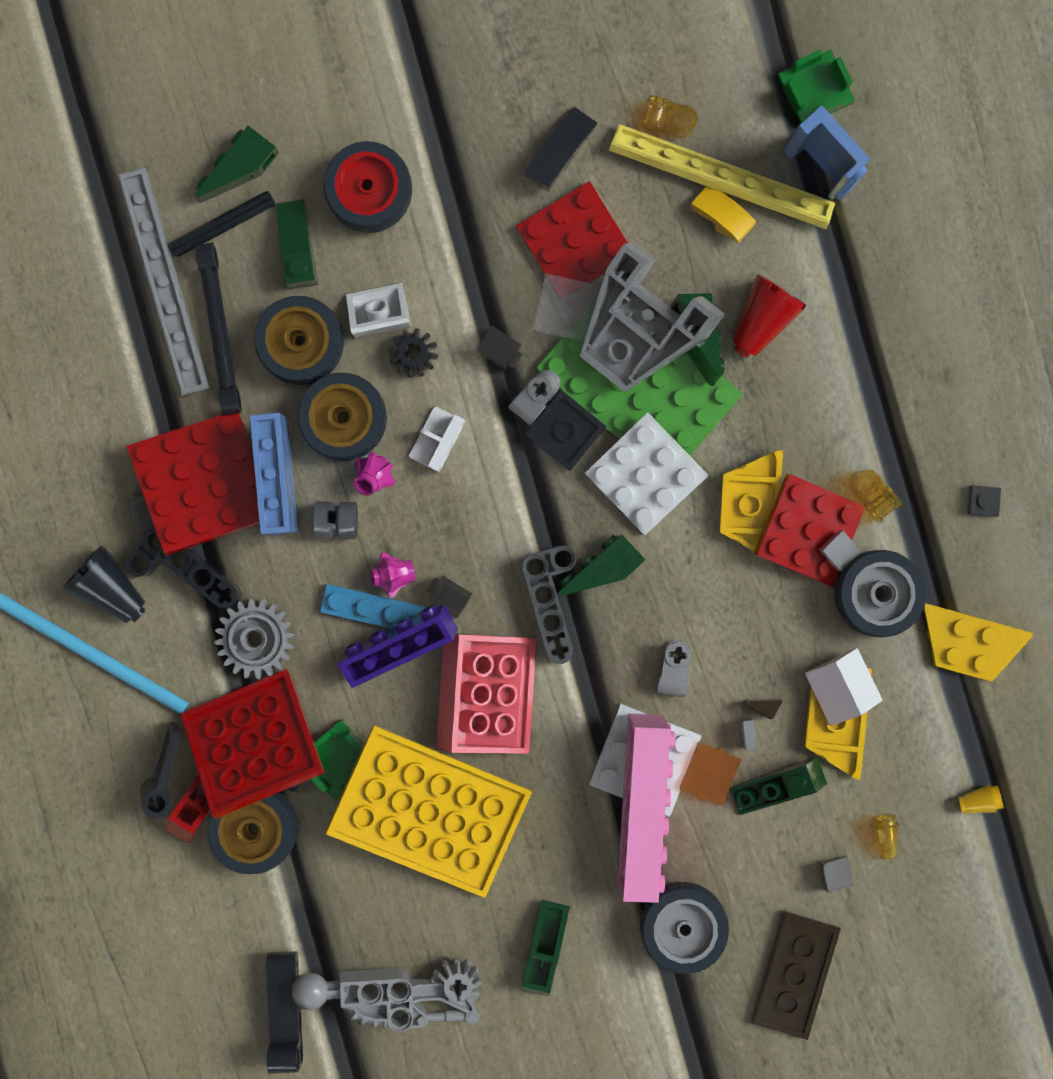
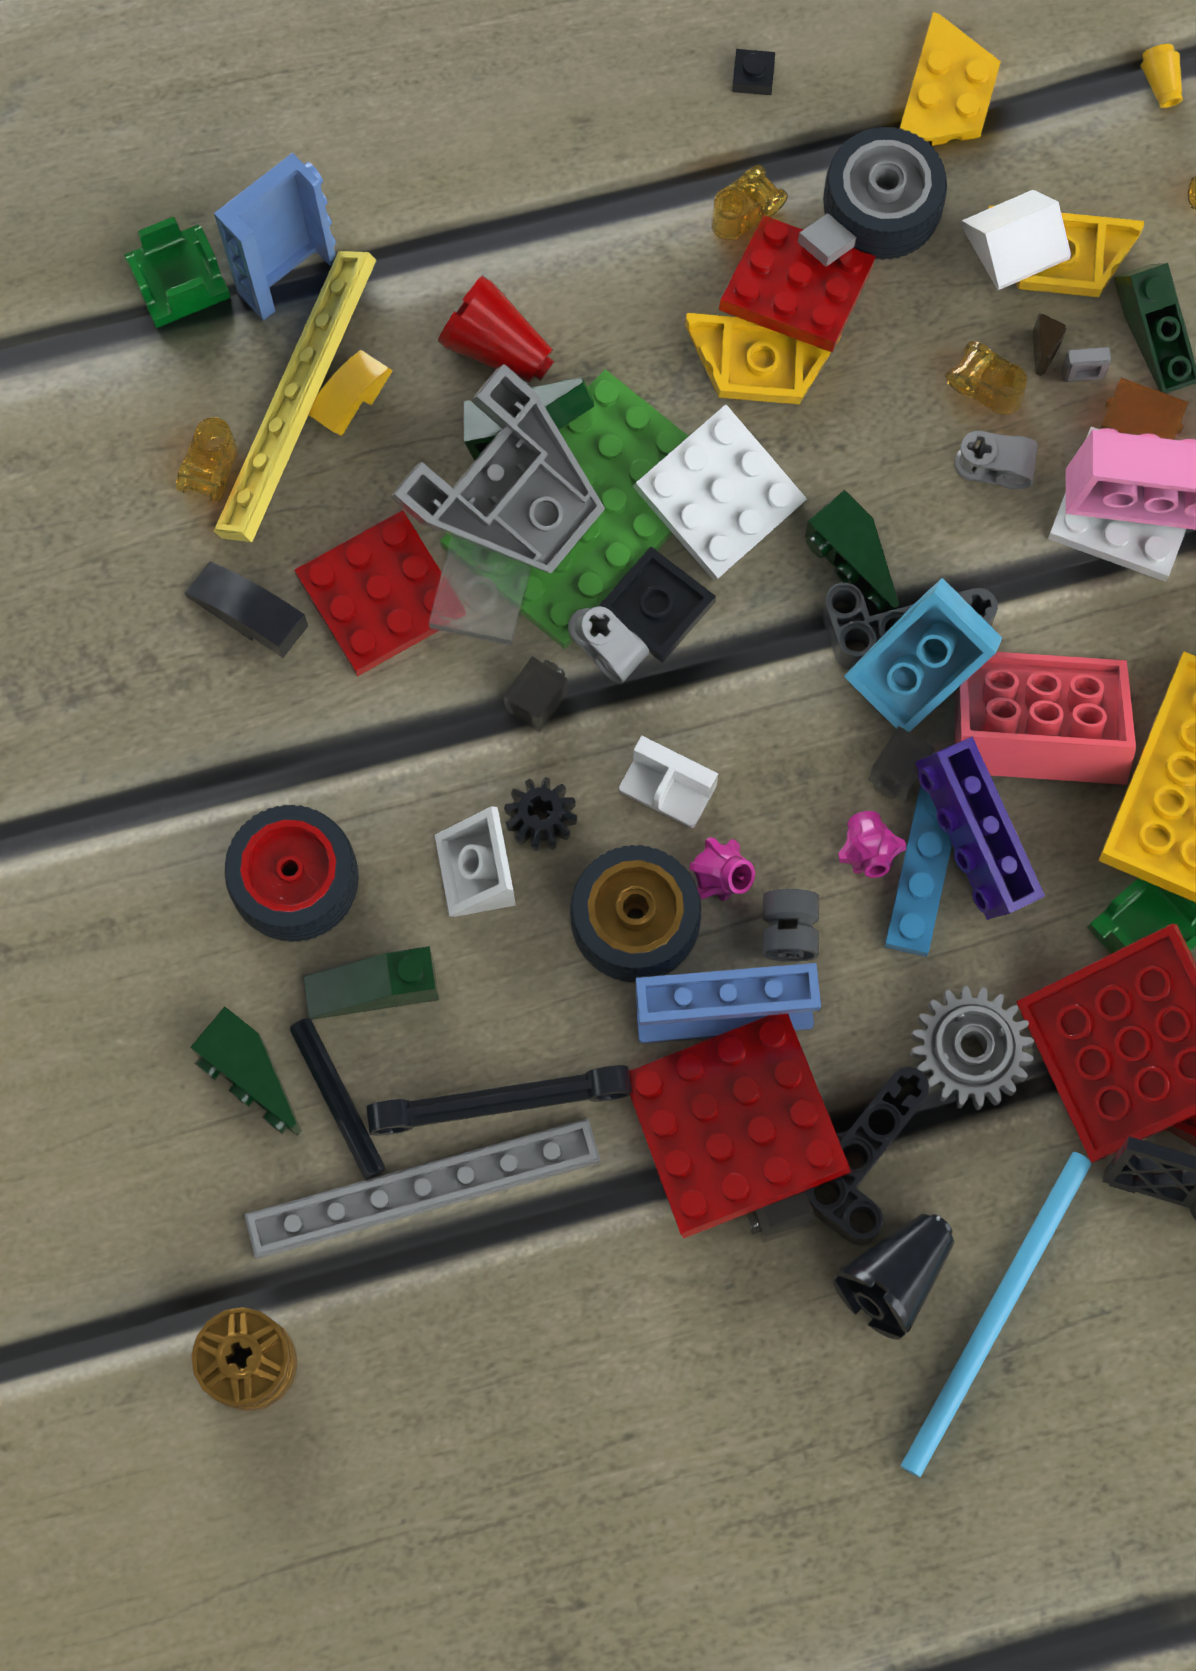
camera: 90 degrees left, 15 degrees down
(62, 175) = (267, 1372): none -> pearl gold wheel
(286, 322) = (512, 944): wheel -> none
(519, 613) = (924, 657): none -> medium azure slope
(737, 662) = (983, 375): none -> clear yellow piece

